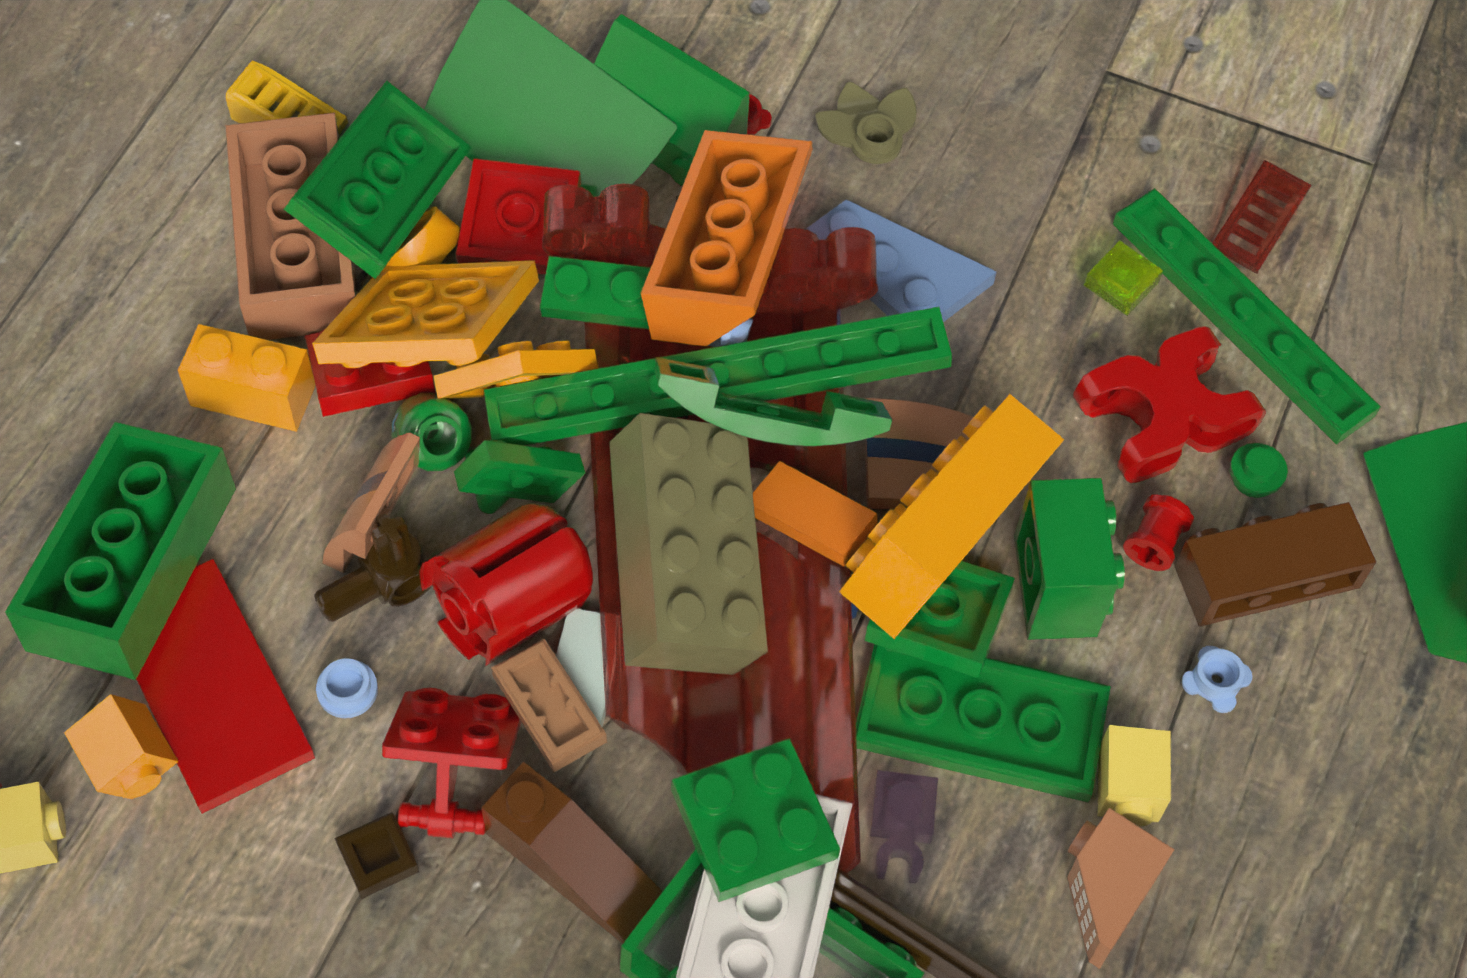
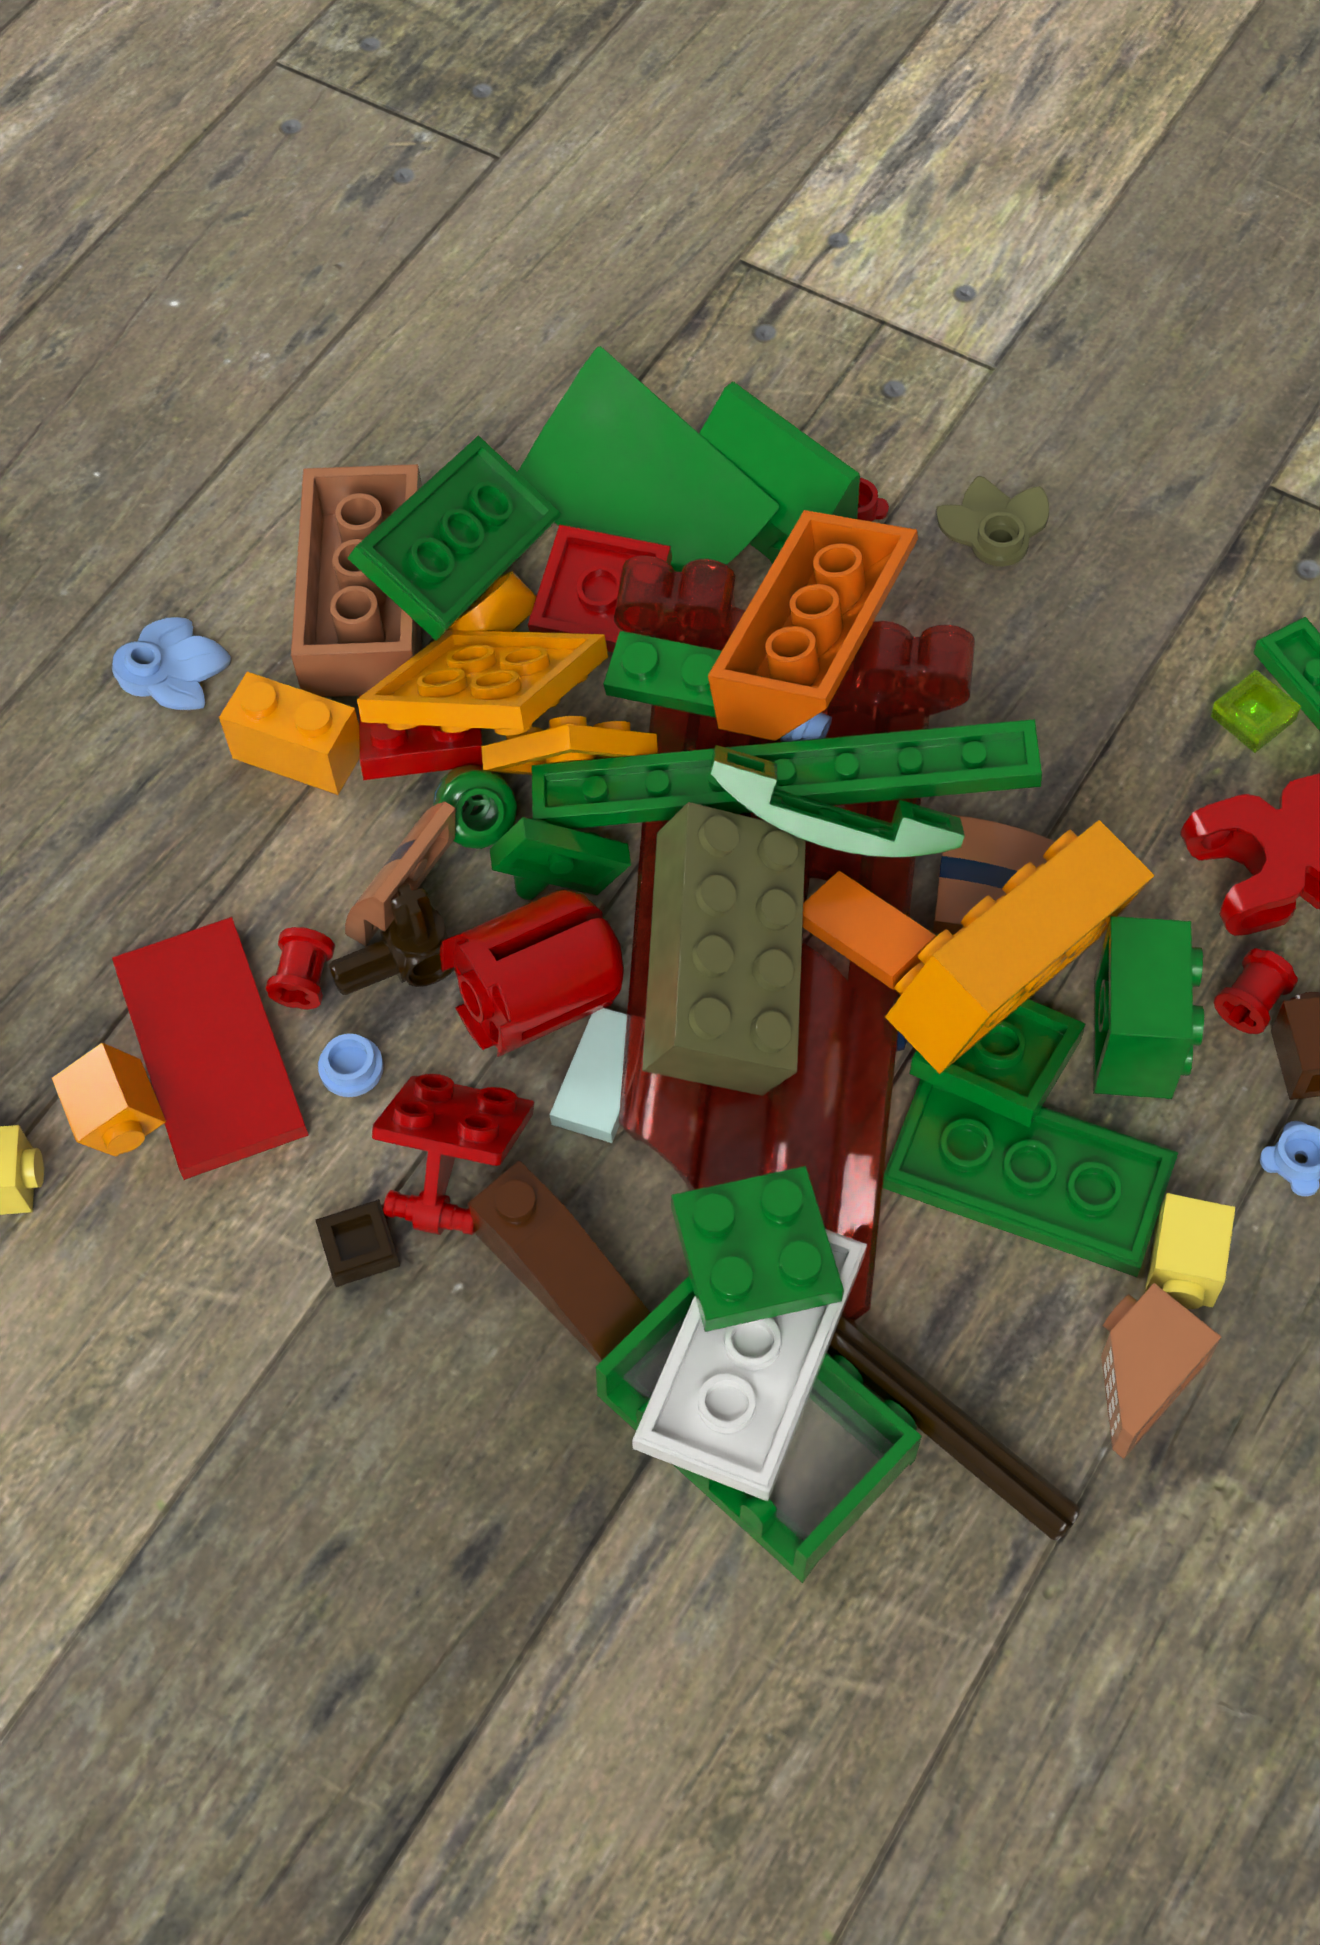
camera: 15 degrees right, 0 degrees up
(117, 321) = (169, 664): none -> light blue plate
(122, 550) = (137, 897): green brick -> none
(261, 86) = (349, 434): yellow slope -> none
(286, 601) = (300, 968): none -> red bush
(549, 705) = (557, 1105): medium nougat plate -> none
(904, 815) = (927, 1267): clear purple plate -> none
(911, 268) = (1020, 680): medium blue wing -> none

